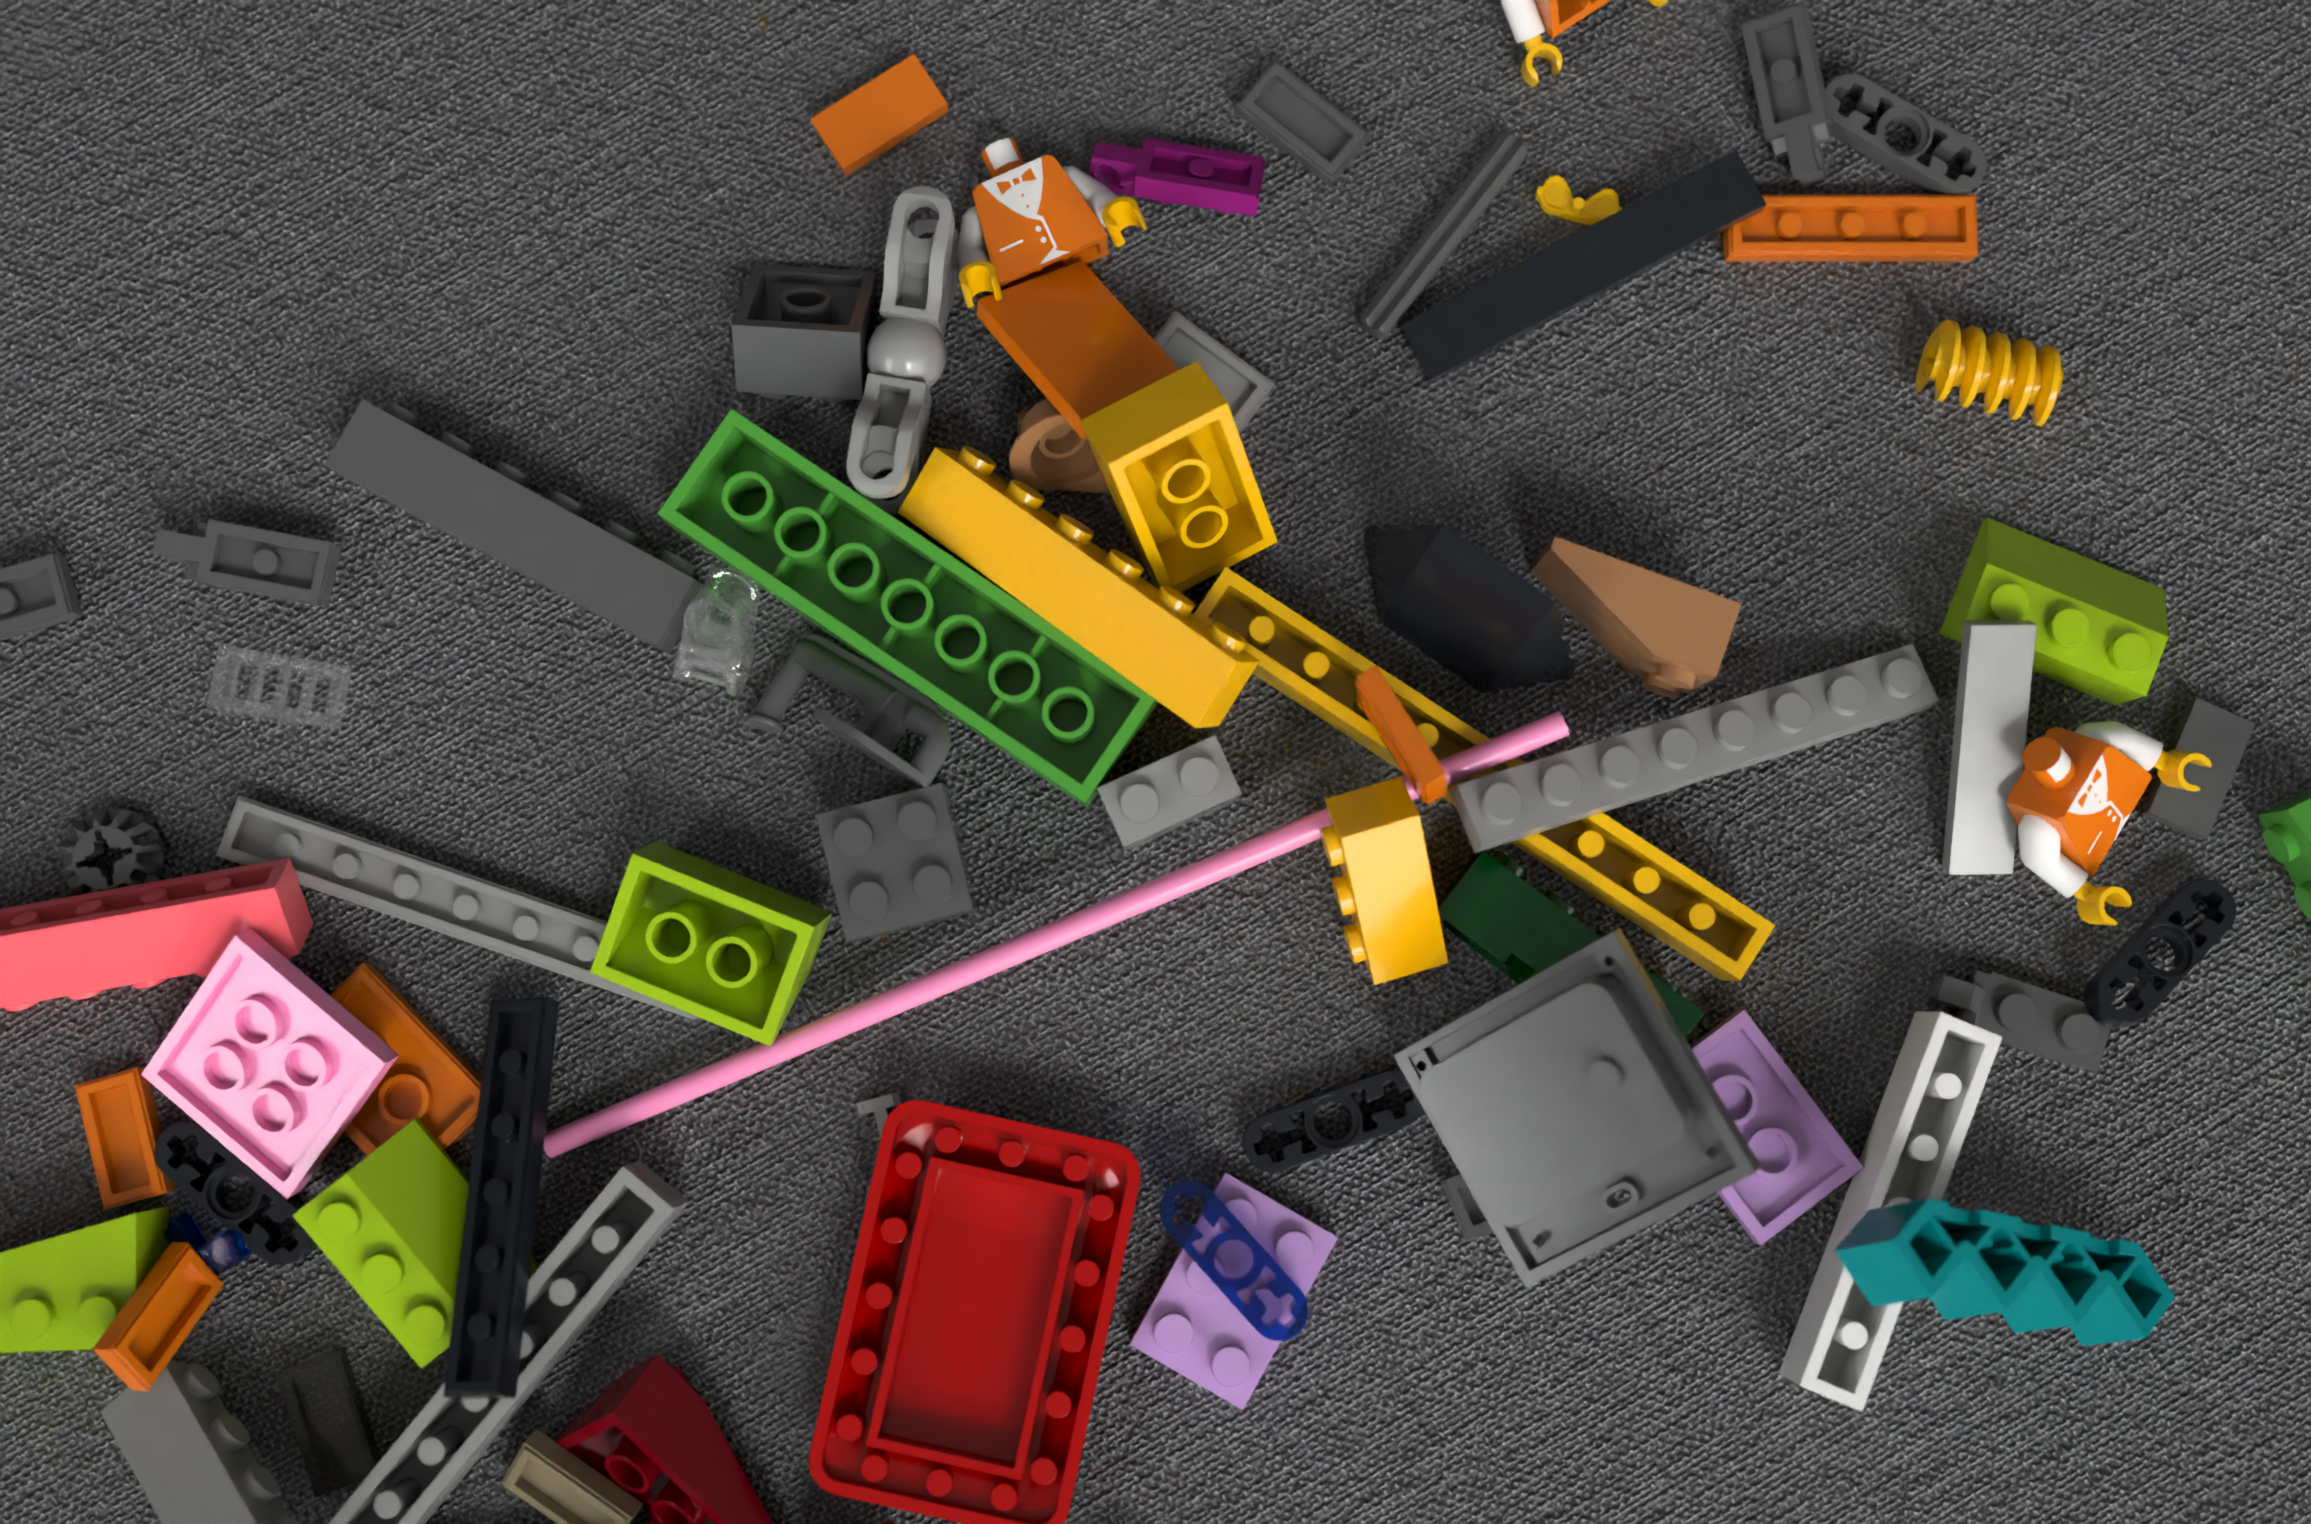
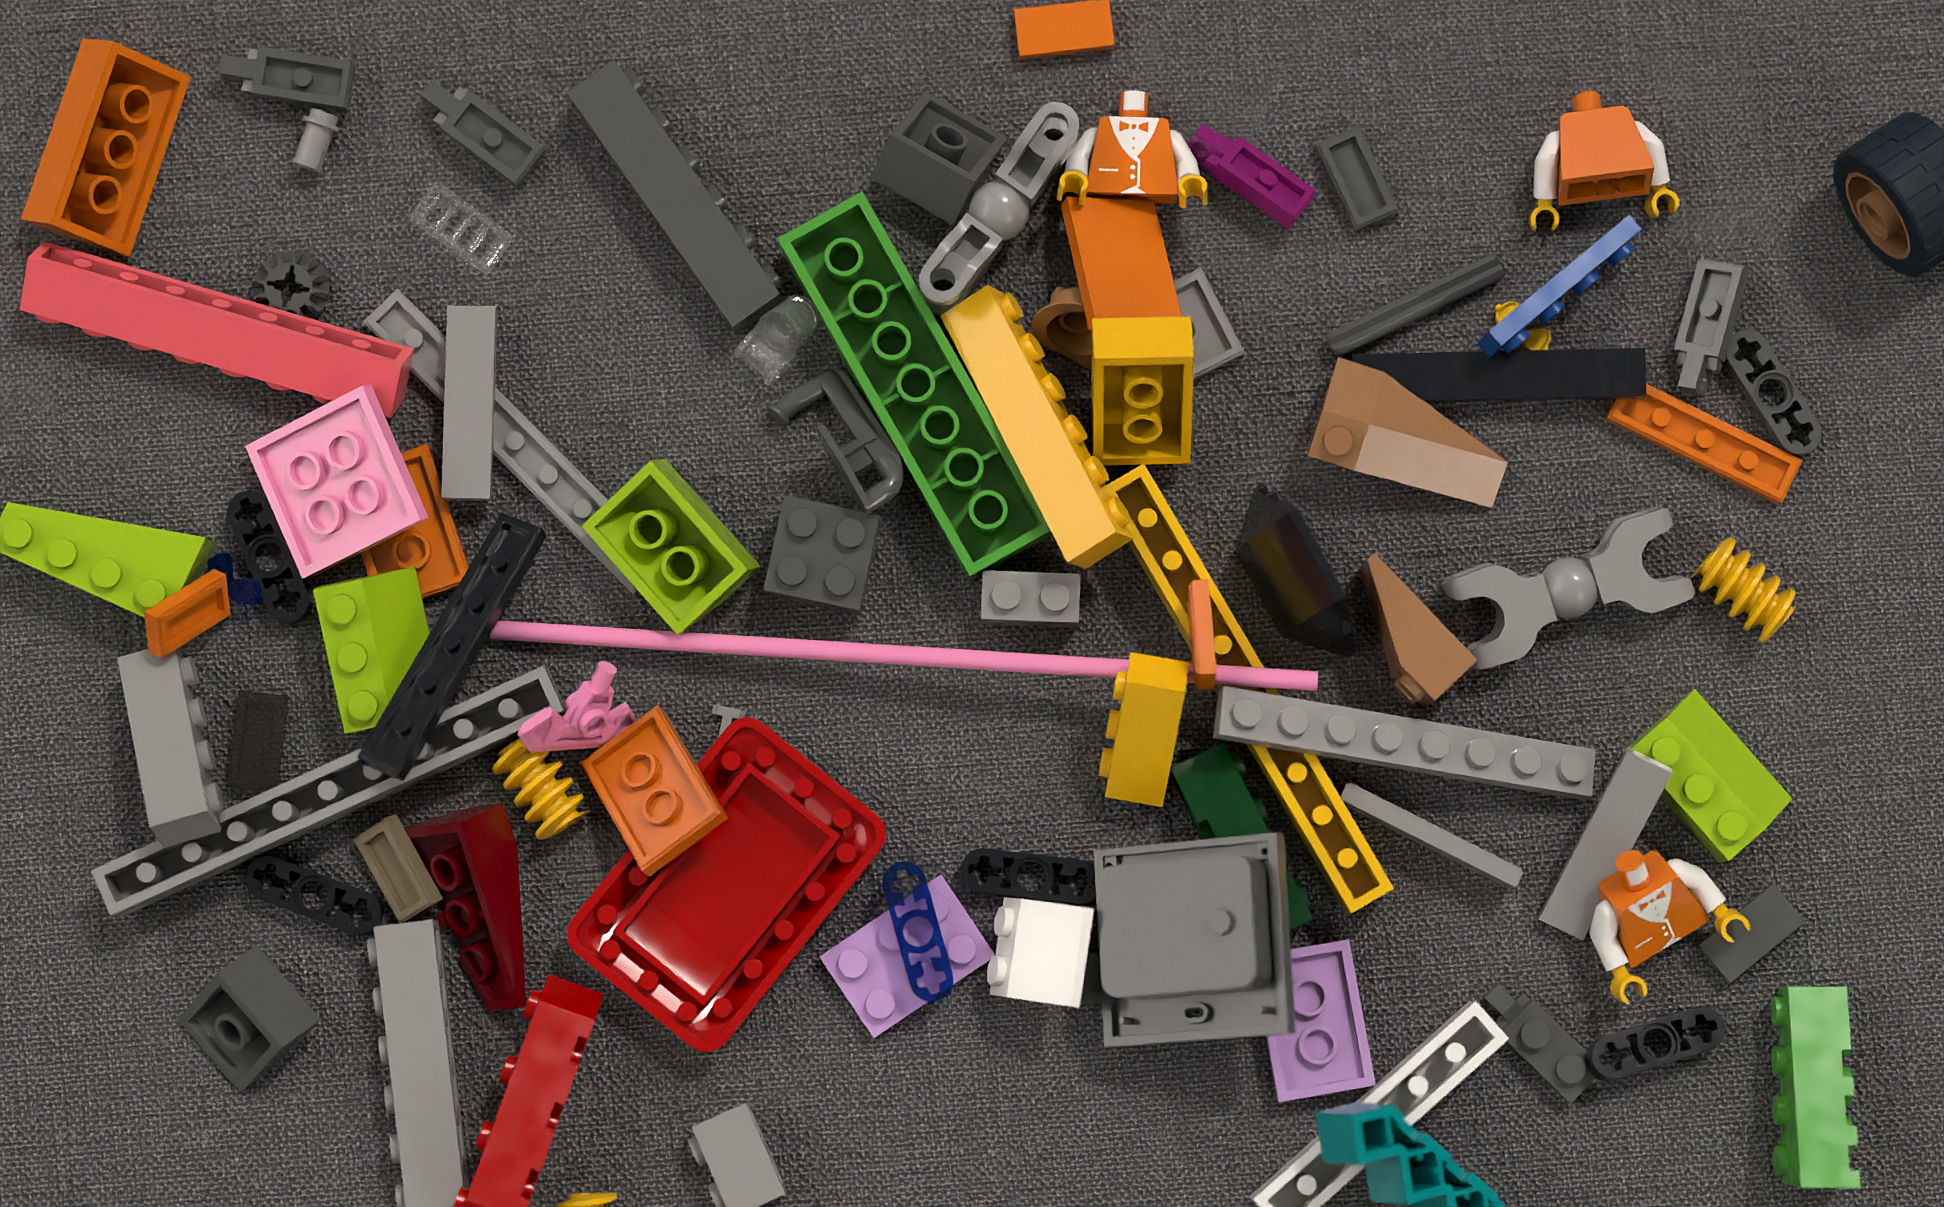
camera: 25 degrees right, 0 degrees up
(56, 668) = (315, 140): none -> light grey pin
(122, 1137) = (210, 483): orange tile -> none
(387, 890) = (469, 403): none -> light grey tile
(692, 1308) = (539, 789): none -> yellow piece
(707, 1206) = (586, 718): none -> bright pink piece
(833, 1249) = (653, 790): none -> orange tile
(1394, 1211) = (1040, 951): none -> white slope
(1495, 392) = (1392, 434): none -> medium nougat wedge
(1597, 152) = (1546, 301): none -> plate
(1779, 839) = (1430, 836): none -> light grey tile
(1791, 467) = (1569, 587): none -> light grey piece

